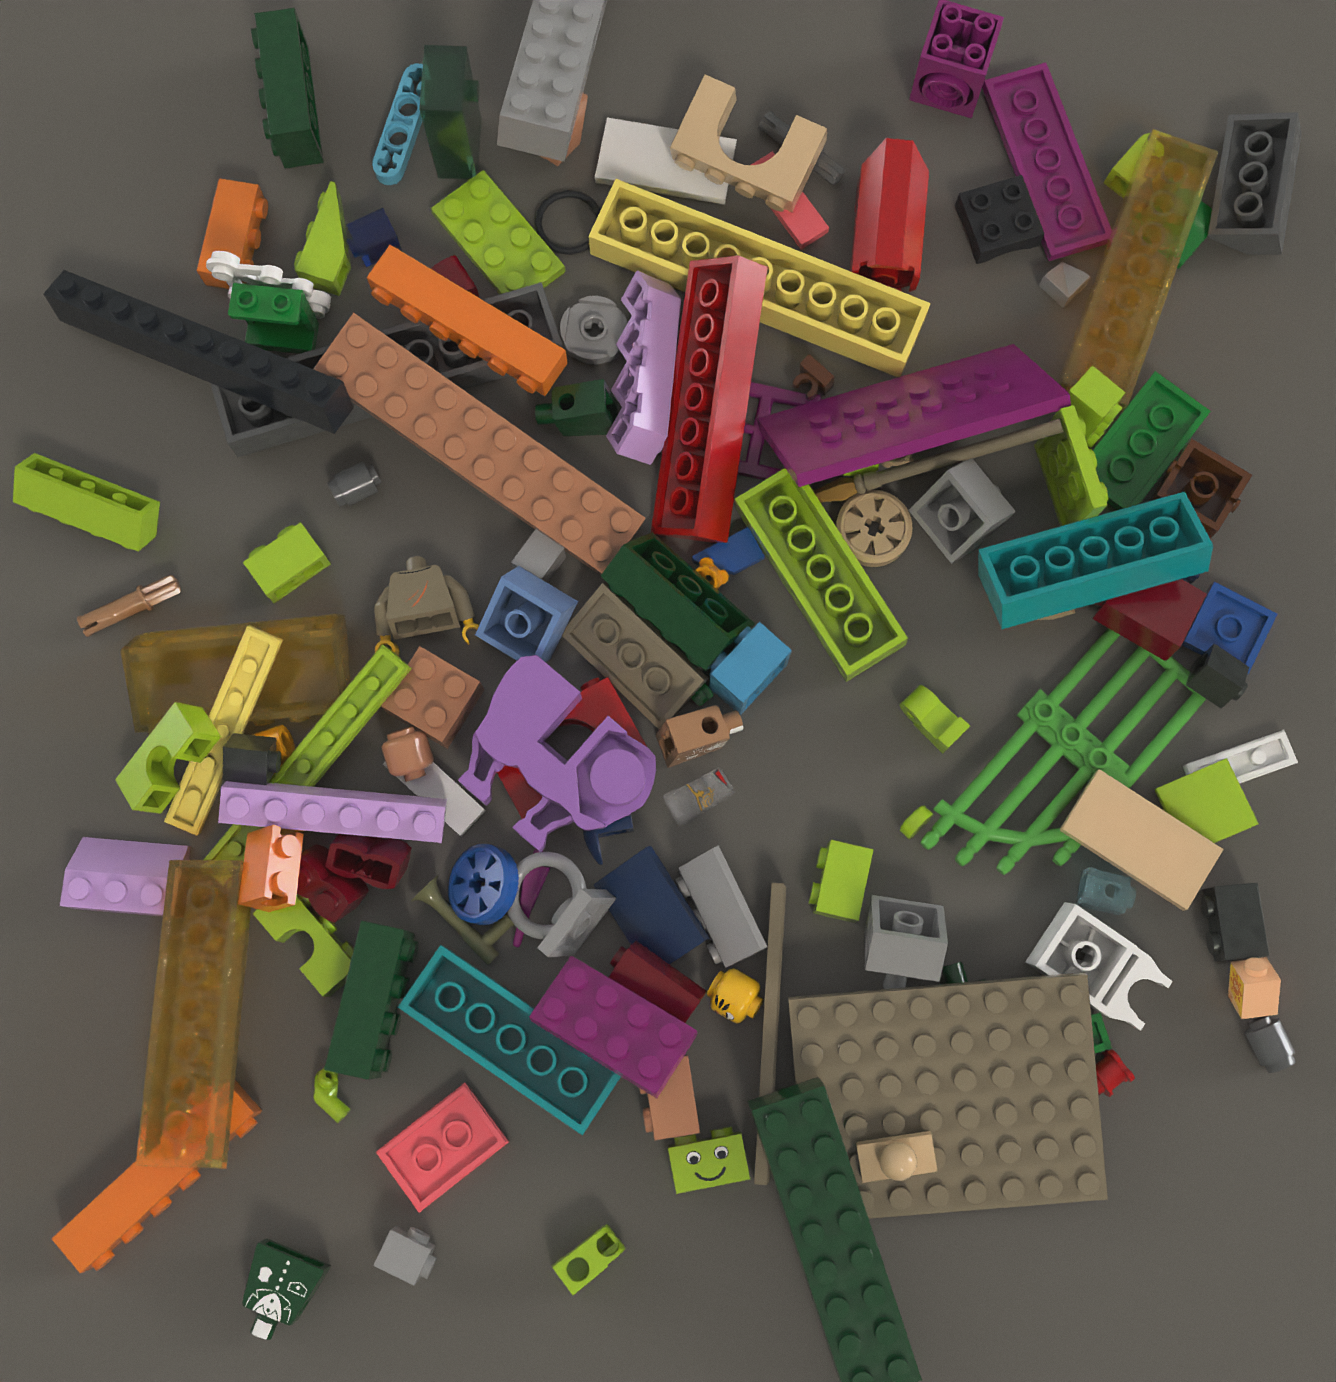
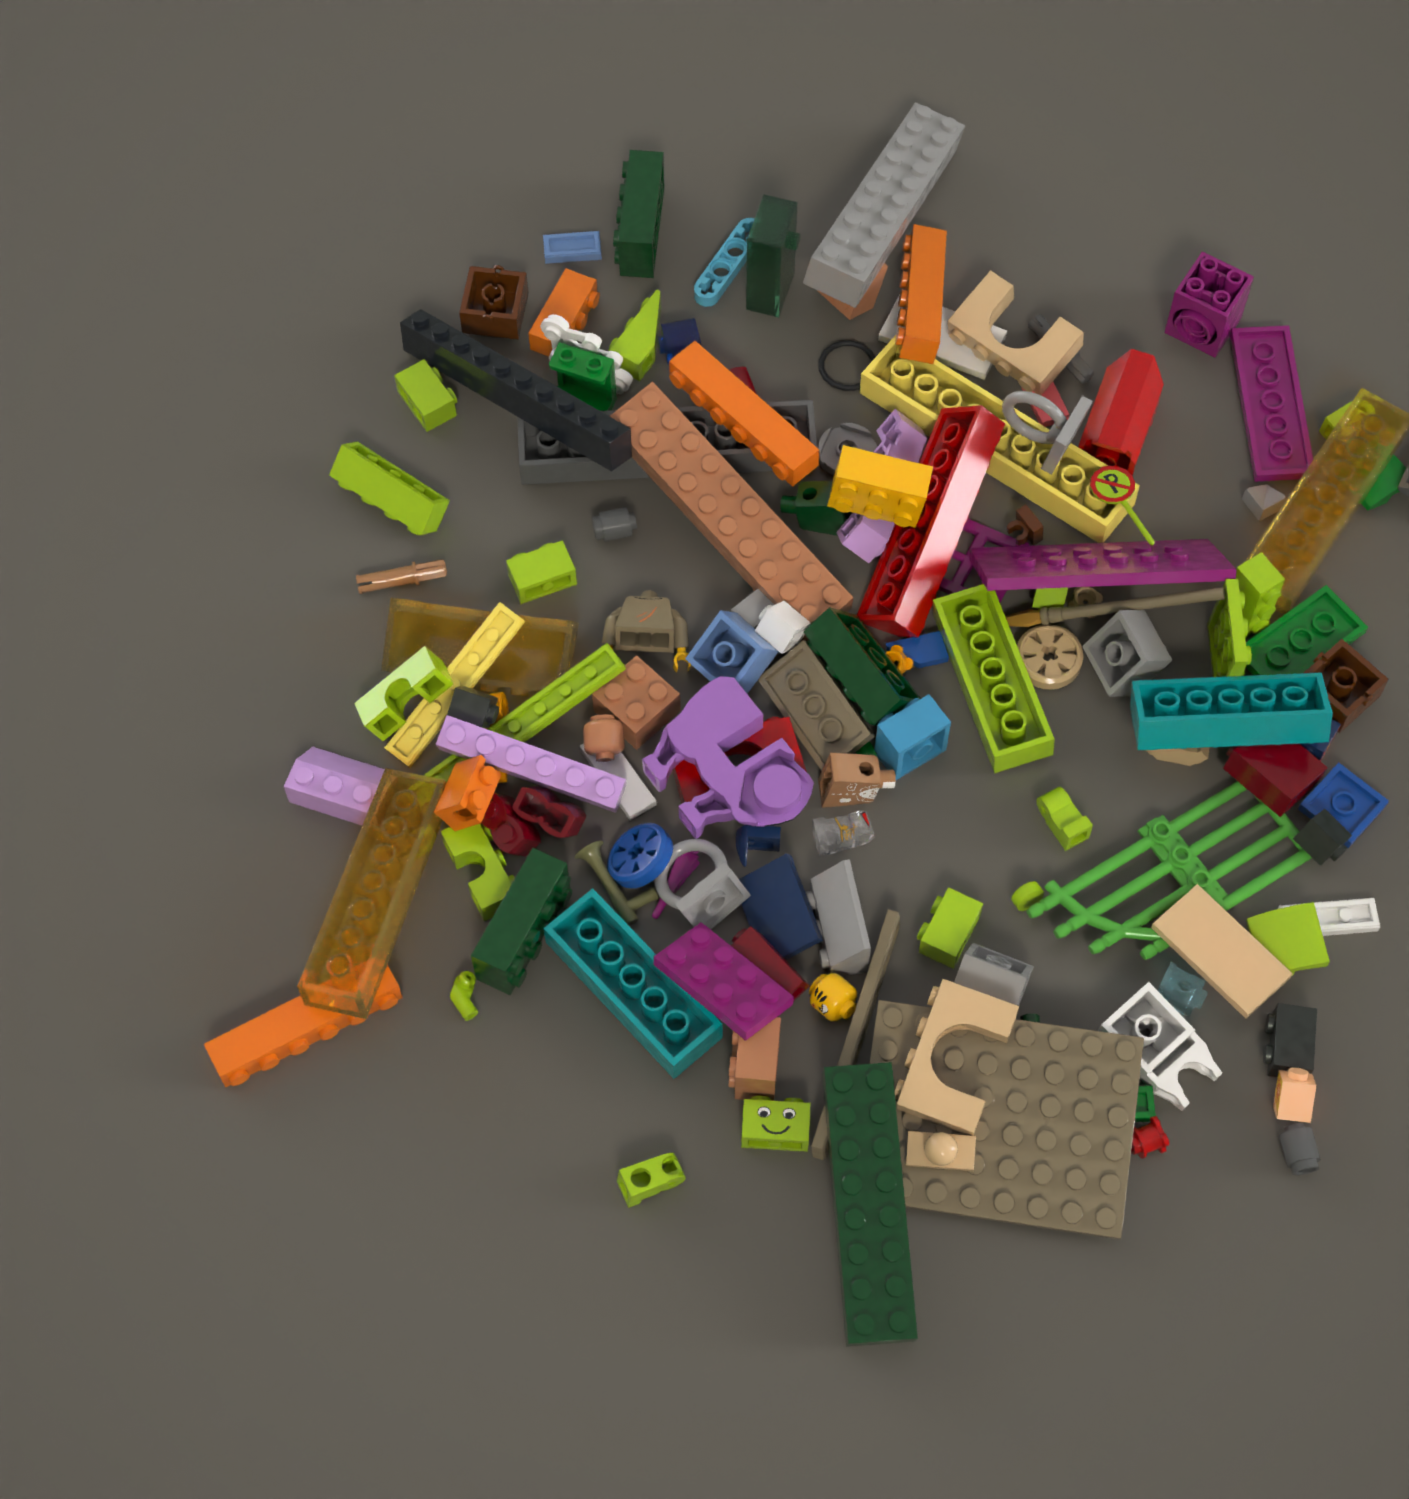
camera: 15 degrees right, 15 degrees down
(99, 373) = (426, 395): none -> lime brick
(147, 239) = (494, 302): none -> reddish brown brick
(221, 145) = (572, 247): none -> medium blue tile
(280, 1285) = (383, 1134): dark green torso -> none
(407, 1255) = (496, 1135): light grey brick -> none
(442, 1147) = (549, 1061): coral tile -> none
(496, 236) = (783, 361): lime plate -> none
(574, 573) = (782, 626): none -> white brick
(634, 120) = (922, 294): none -> orange brick
(646, 384) = (879, 486): none -> yellow brick
(834, 264) = (1062, 430): none -> light grey tile
(863, 1101) = (952, 1010): none -> tan arch
(904, 311) = (1116, 486): none -> piece
(999, 218) = (1218, 438): black brick -> none

